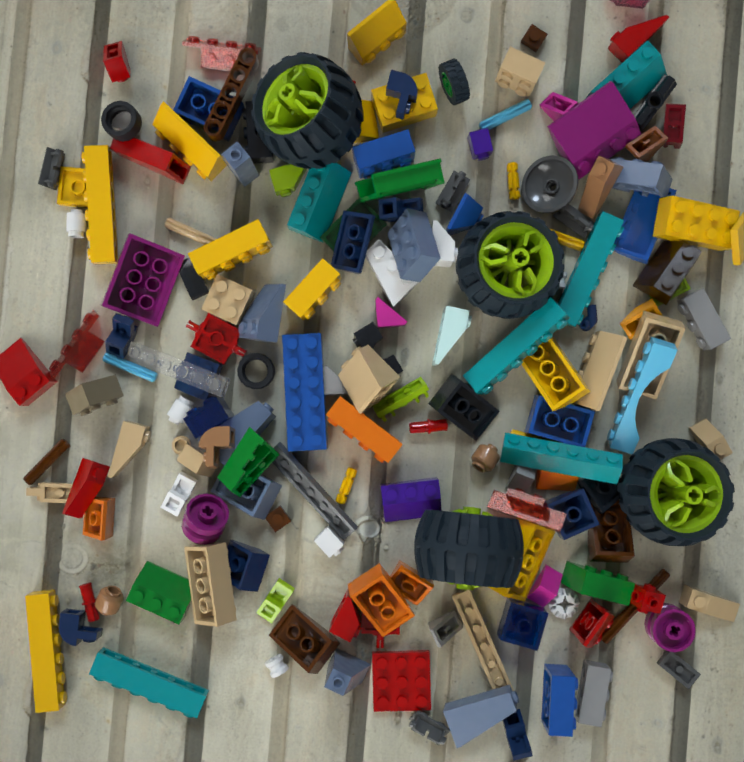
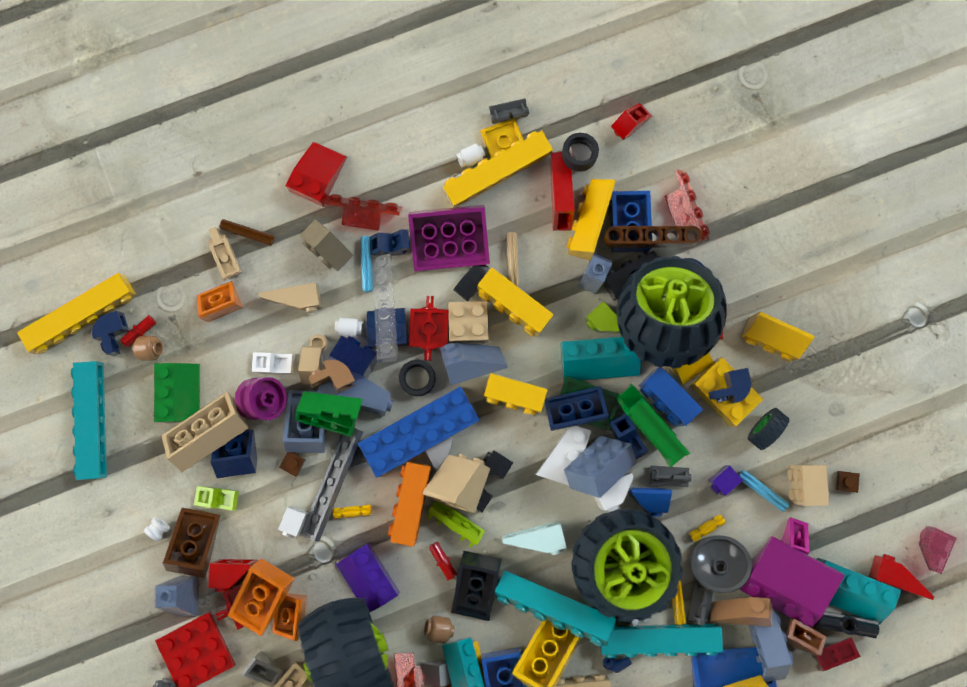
camera: 65 degrees right, 5 degrees down
(85, 487) = (240, 278): red slope -> none
(387, 316) = (524, 472): dark pink slope -> none

